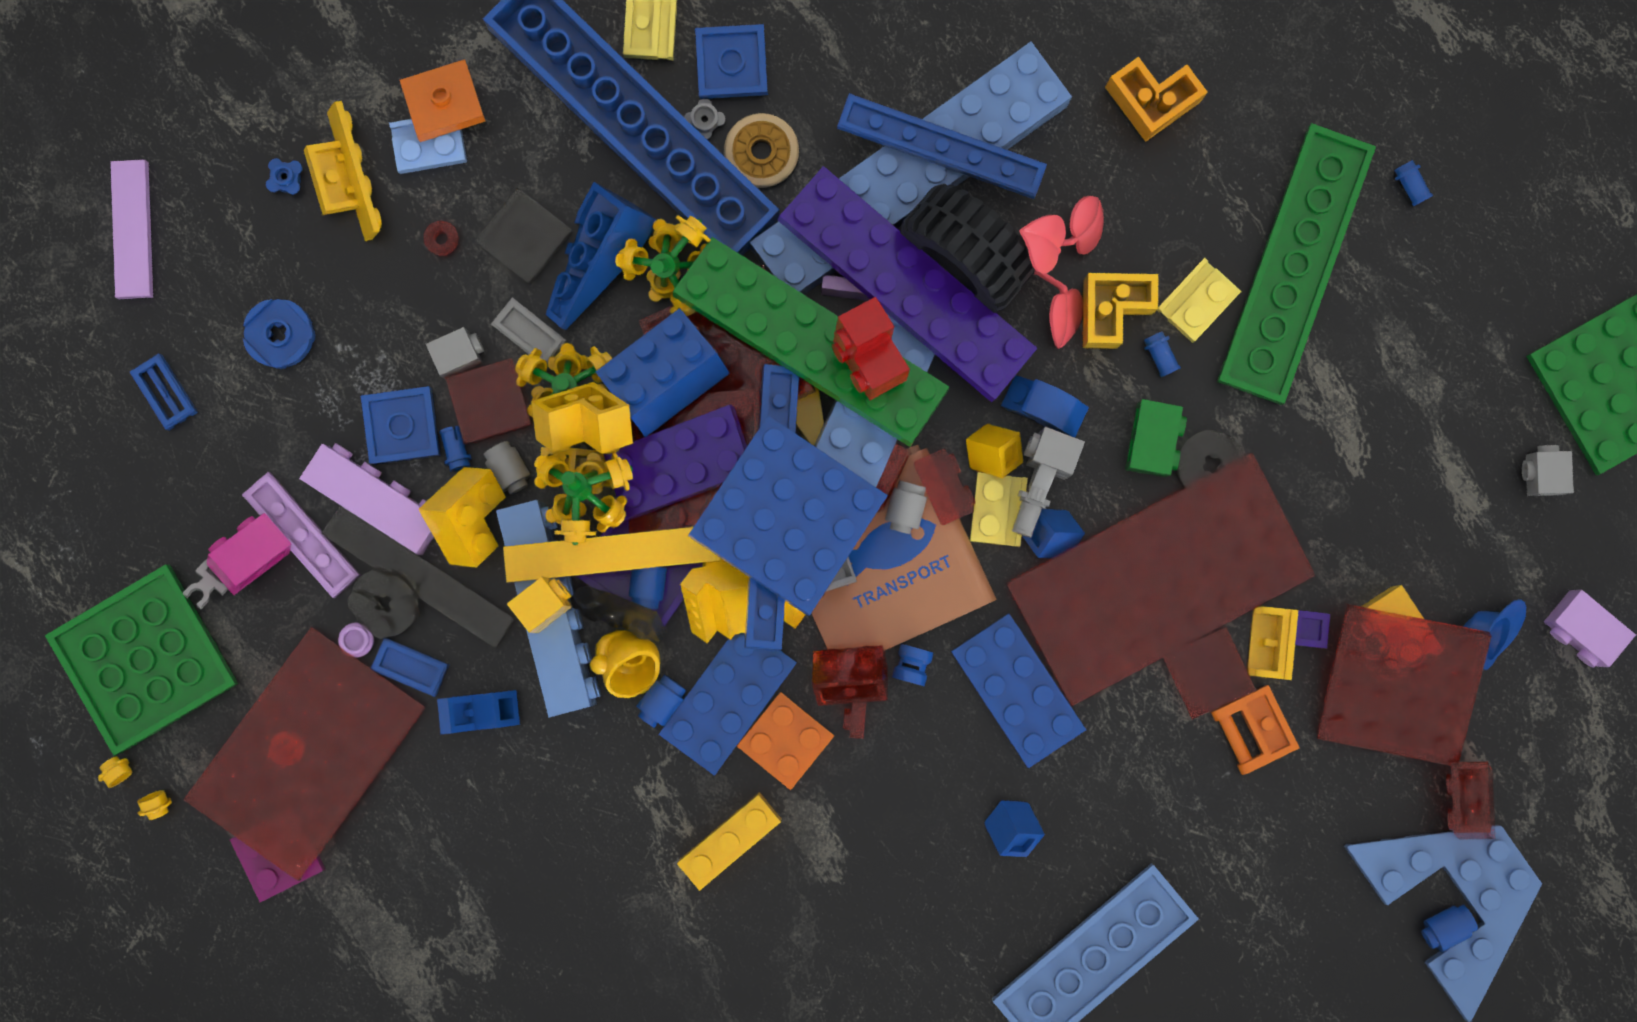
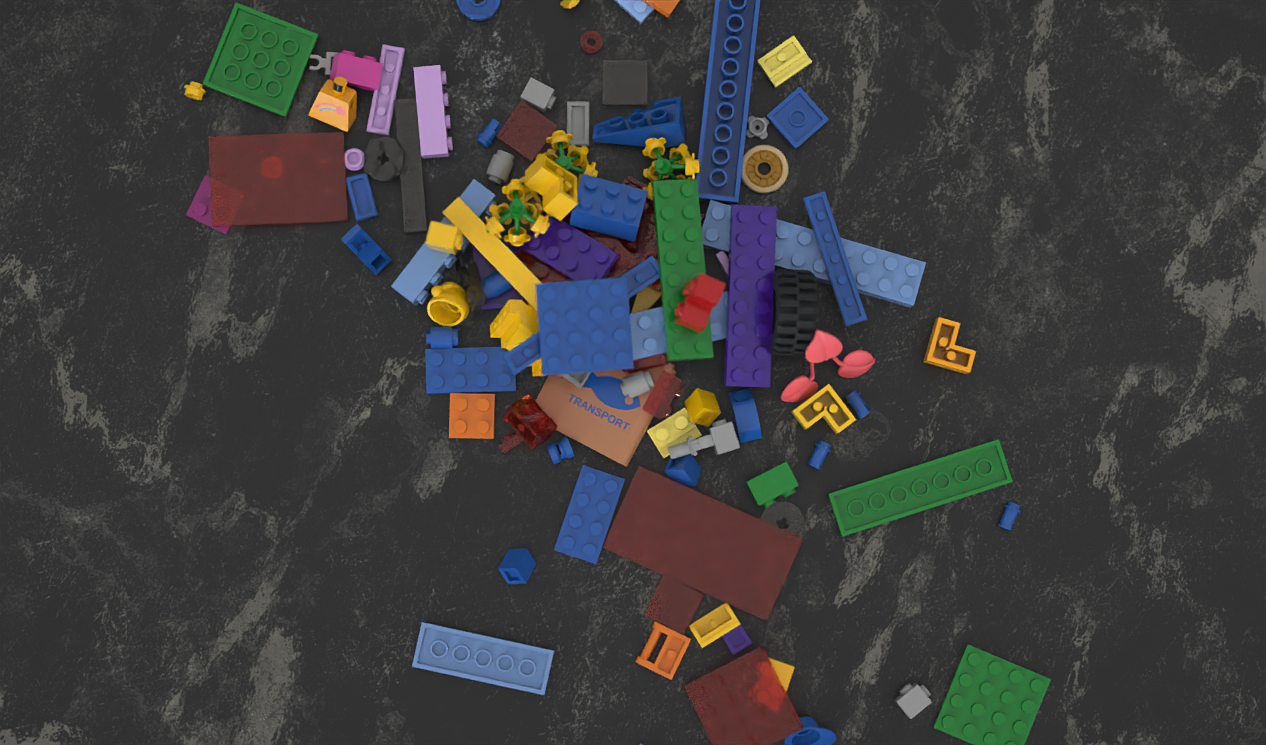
camera: 45 degrees right, 0 degrees up
(154, 805) = (193, 123): yellow plate -> none
(269, 609) = (336, 104): none -> light orange torso
(400, 425) = (479, 96): blue plate -> none
(458, 515) = (456, 161): yellow brick -> none
(729, 841) = (399, 426): yellow brick -> none
(1129, 259) = (857, 404): none -> blue pin
(1198, 300) = (862, 452): light yellow plate -> none

